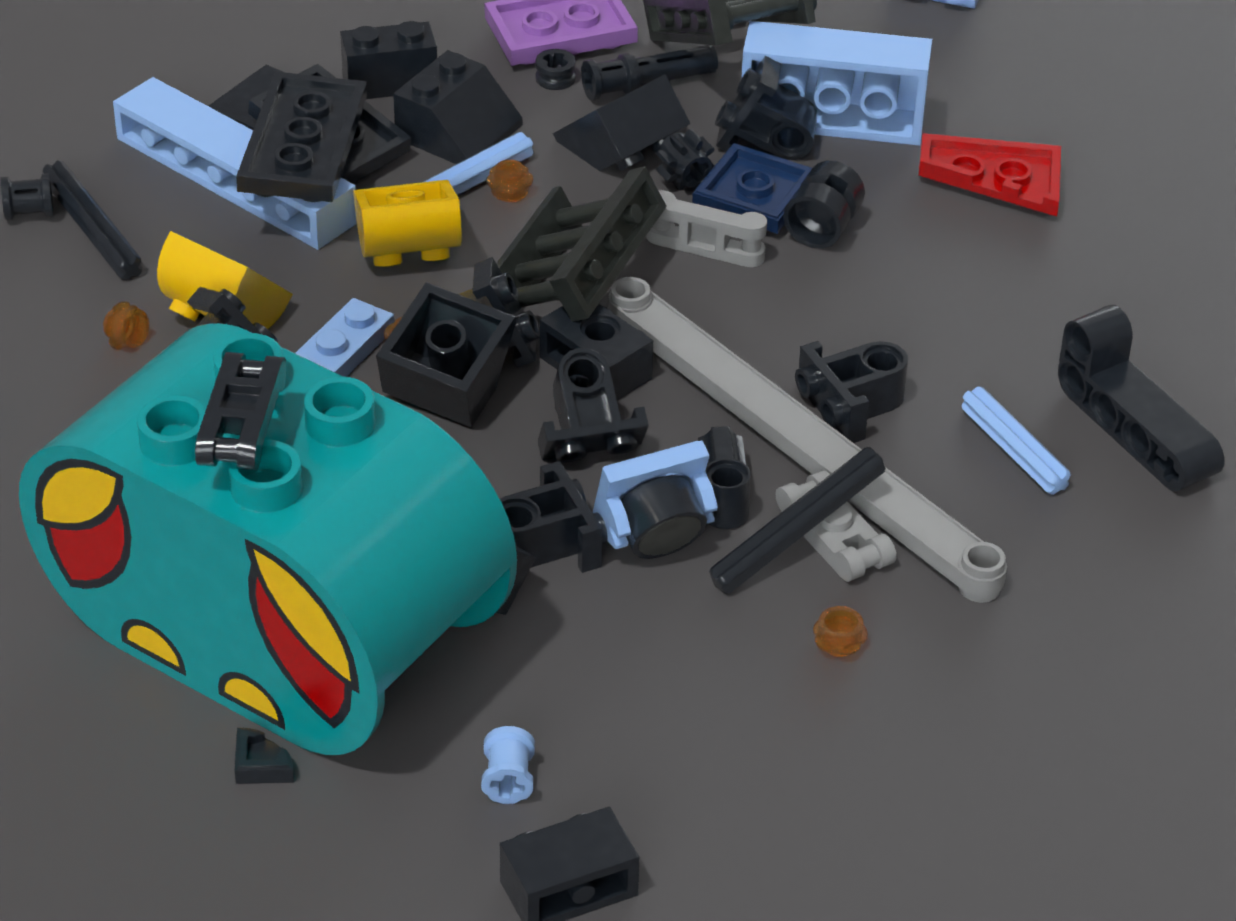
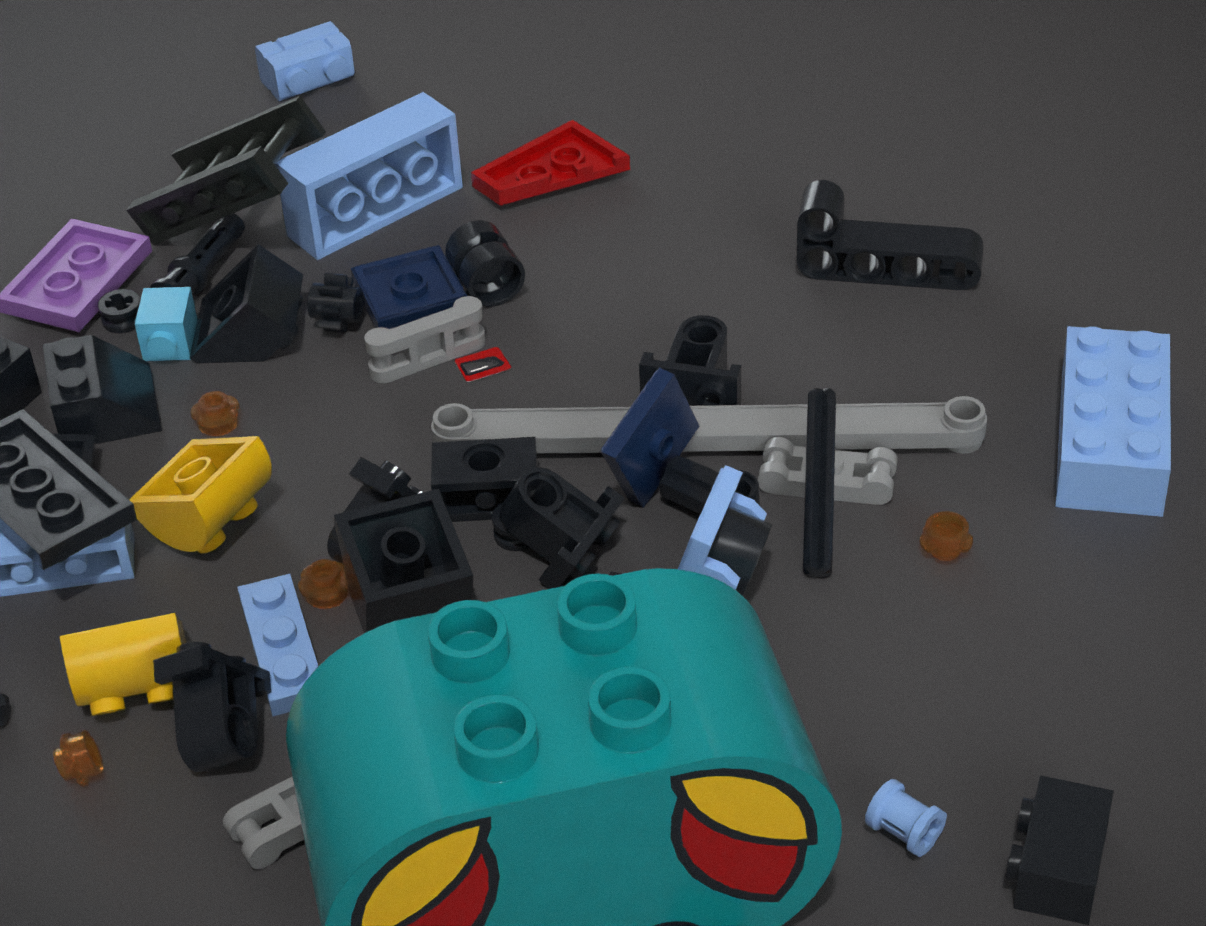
camera: 45 degrees left, 0 degrees up
(240, 406) = (558, 666): black plate -> none
(476, 168) = (177, 416): light blue axle -> none
(561, 95) = (166, 323): none -> medium azure brick
(597, 249) = (399, 378): pearl dark grey fence -> none
(713, 391) = (650, 437): none -> dark blue plate
(733, 278) = (482, 364): none -> sticker
(768, 115) = (349, 230): black pin -> none
(1016, 440) = (839, 327): light blue axle -> none
(1092, 655) = (1114, 421): none -> light blue brick

